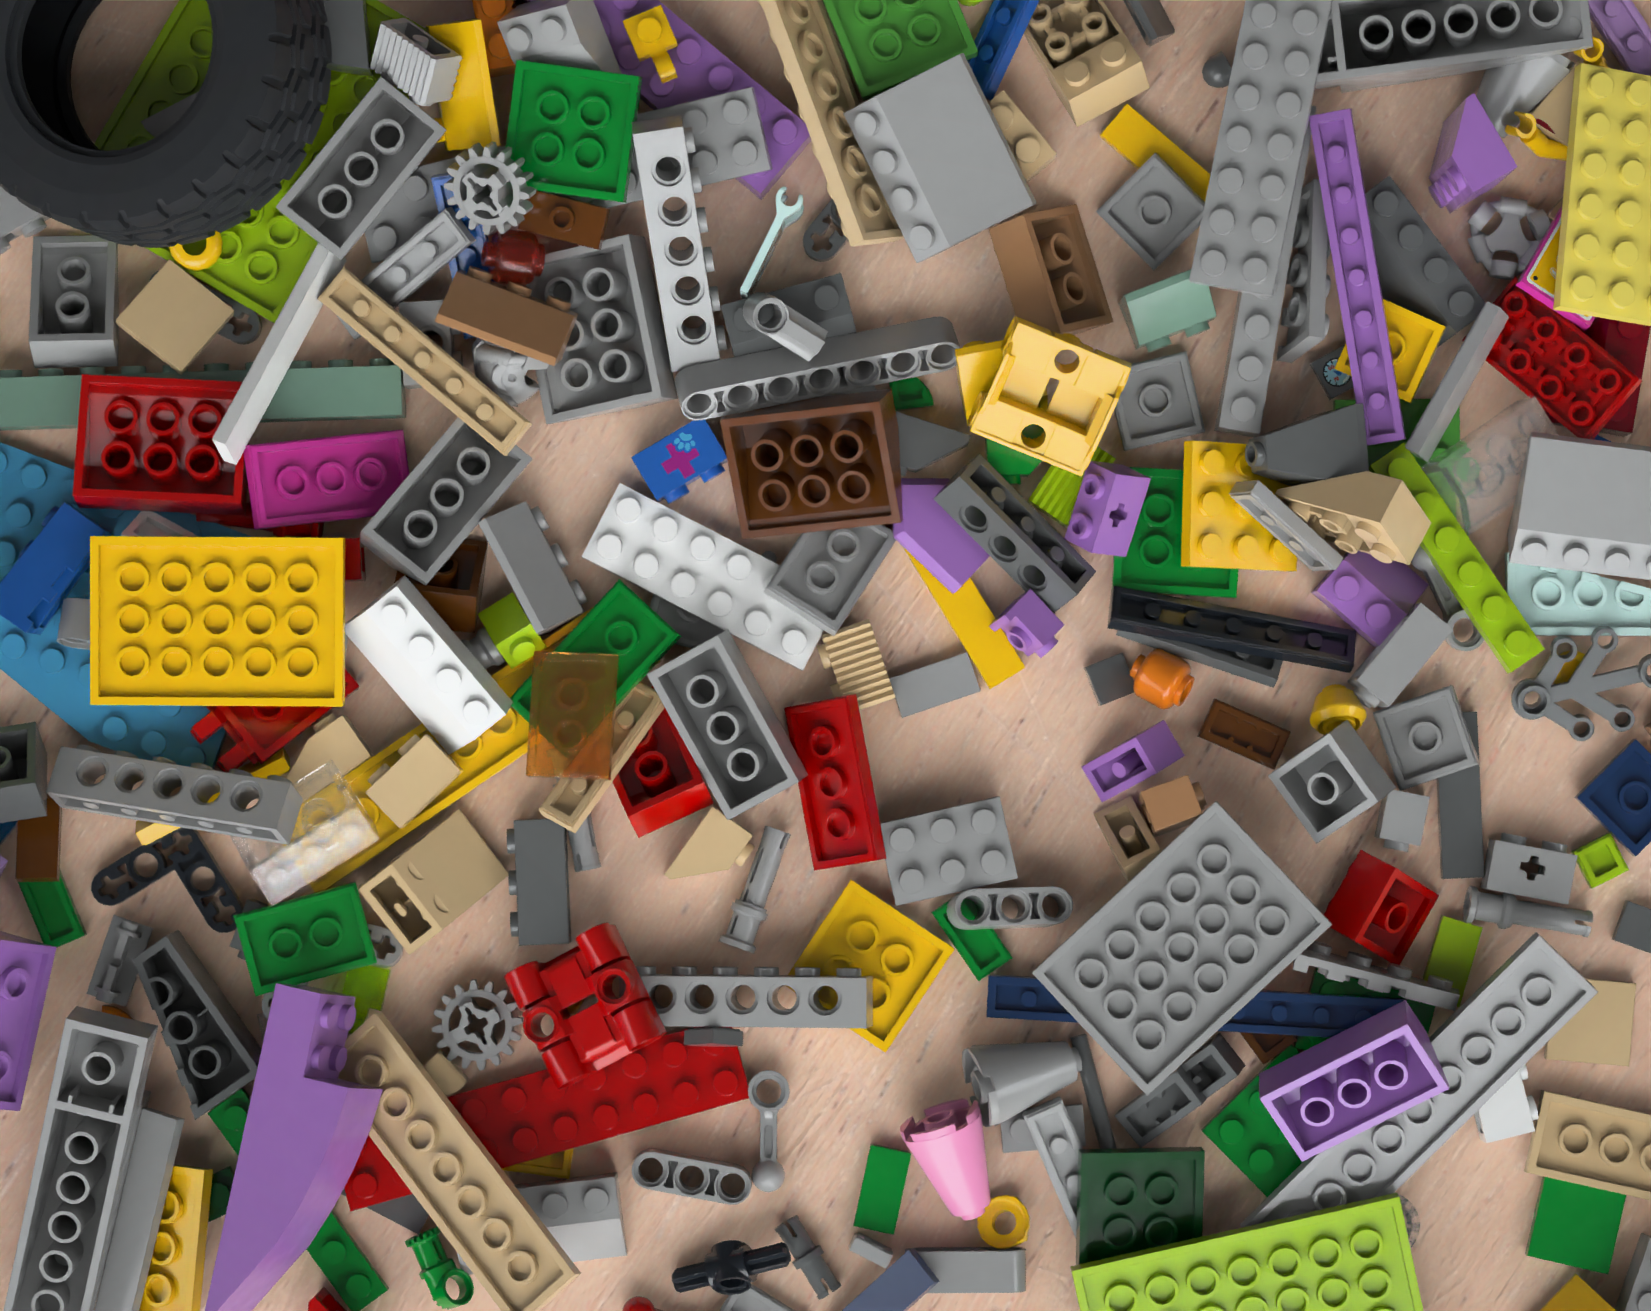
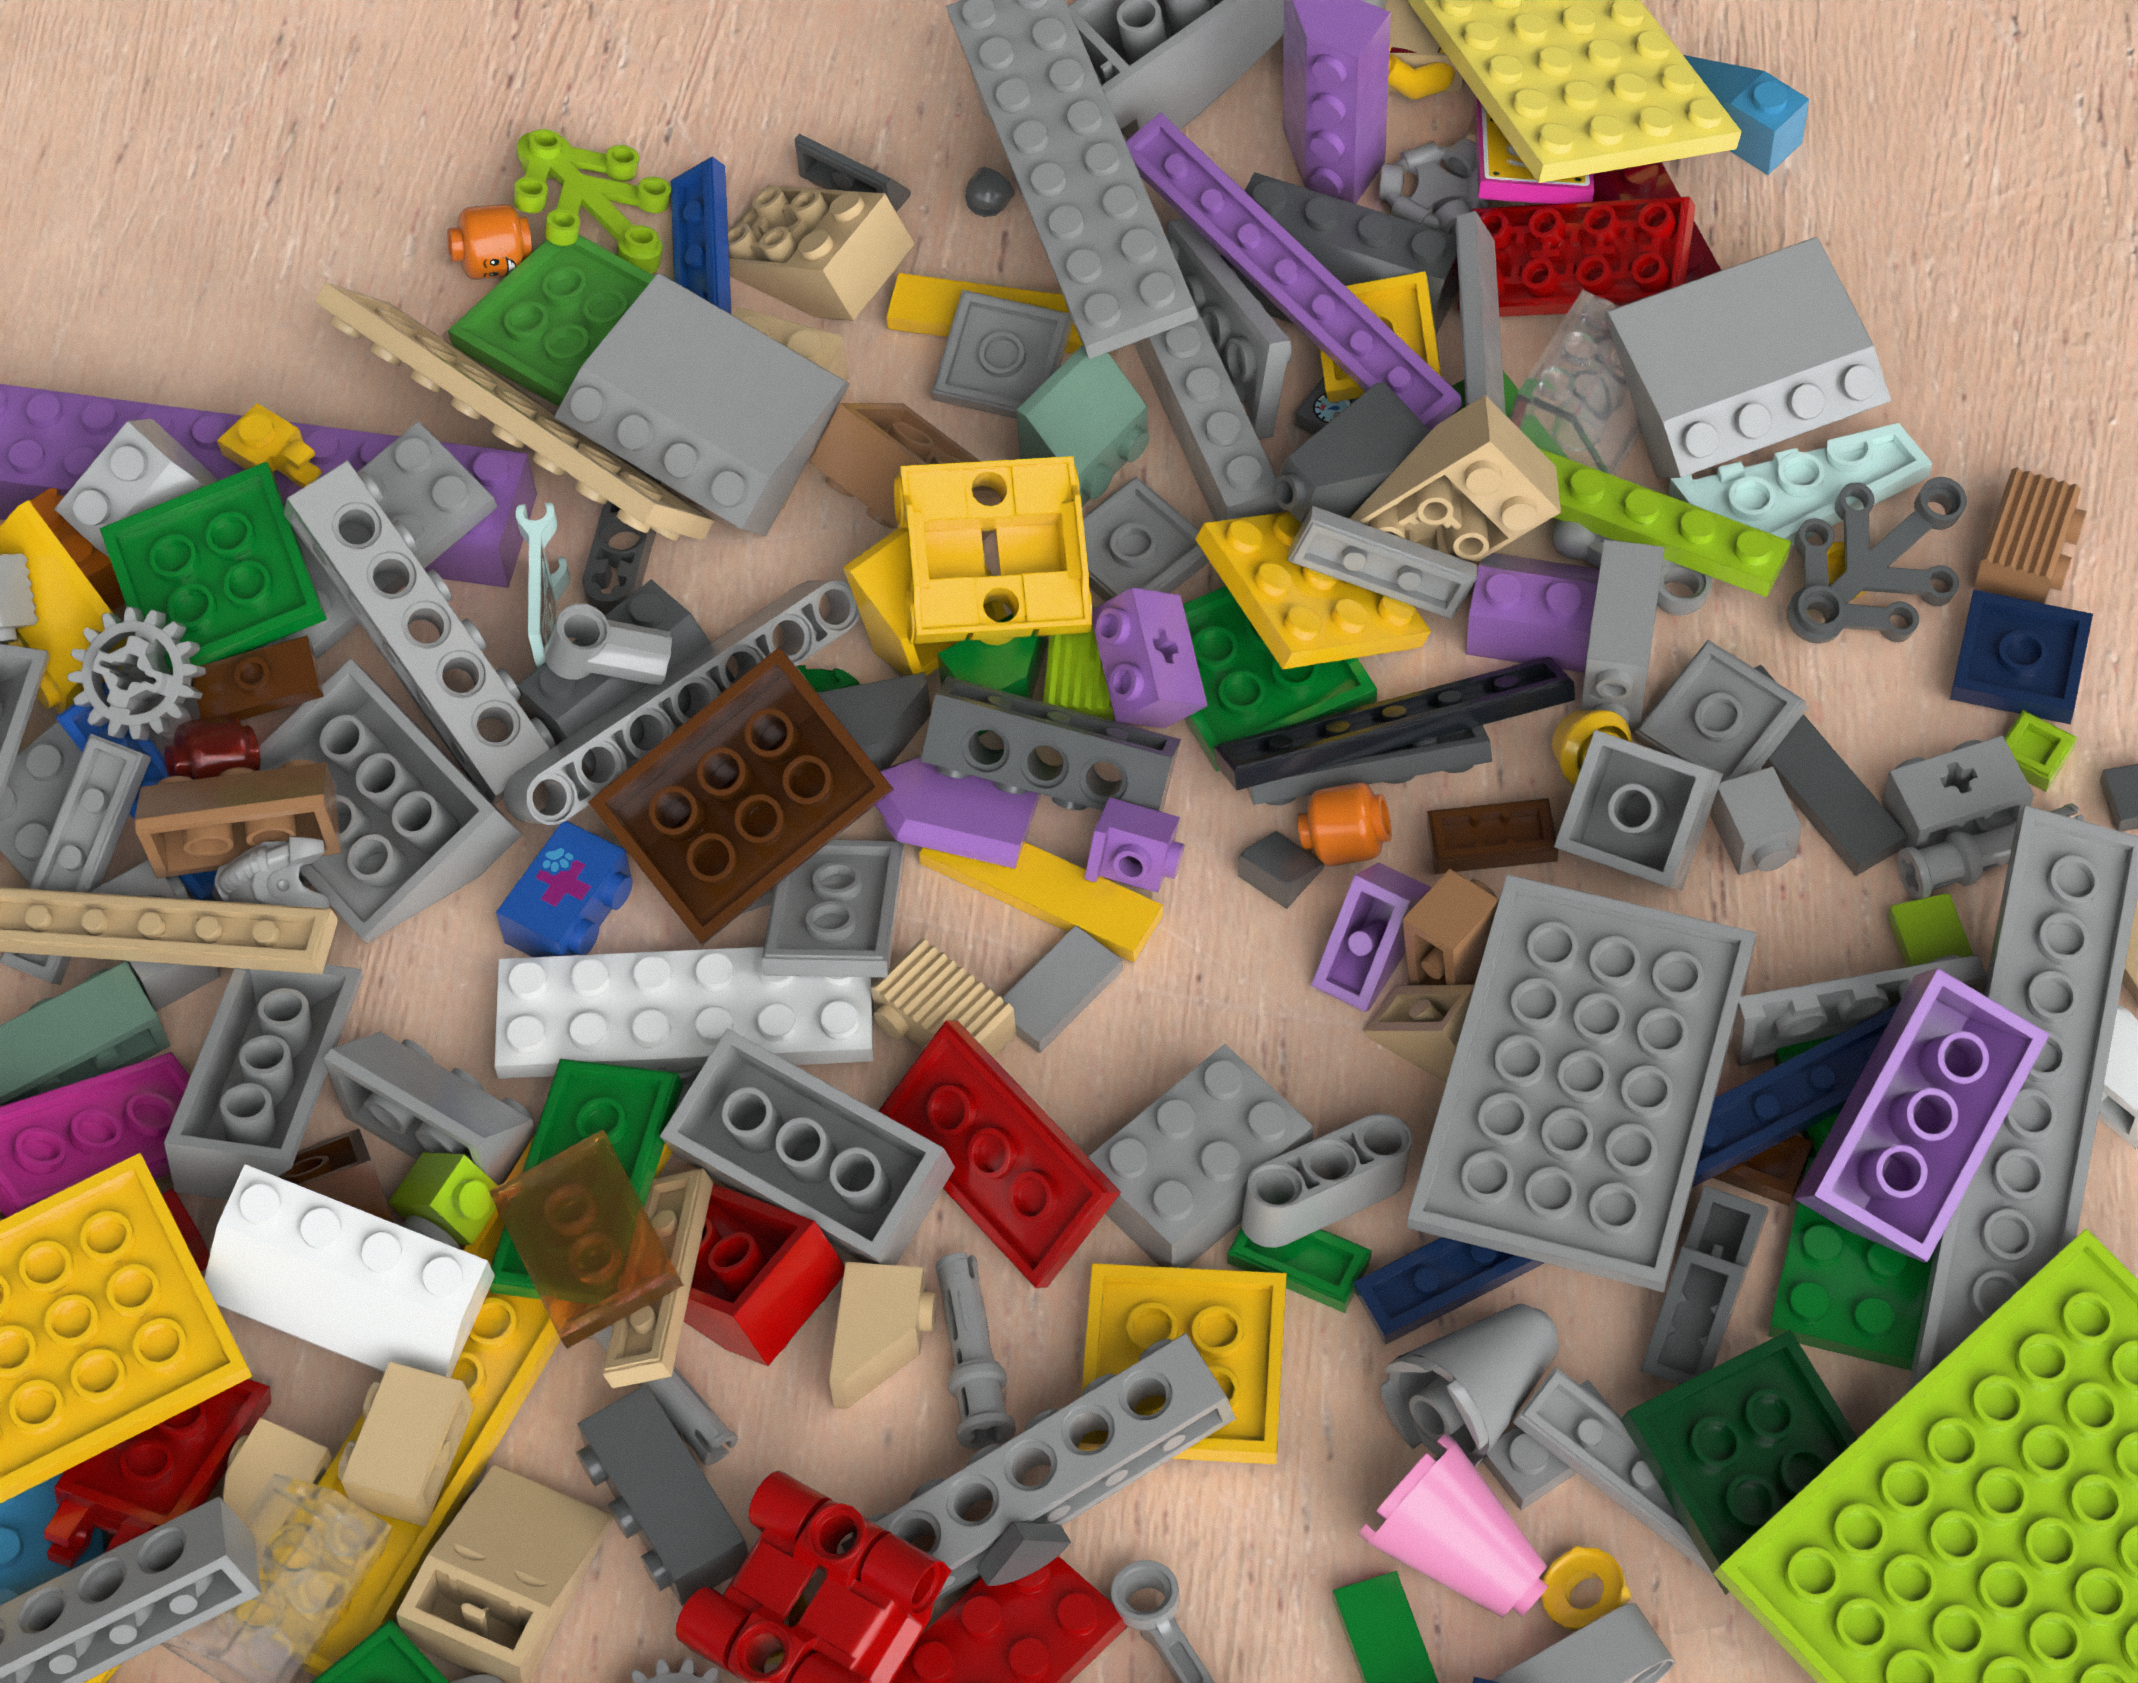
camera: 30 degrees left, 30 degrees down
(1094, 1094) = (1592, 1361): dark grey bar -> none
(1380, 907) = (1805, 923): red slope -> none

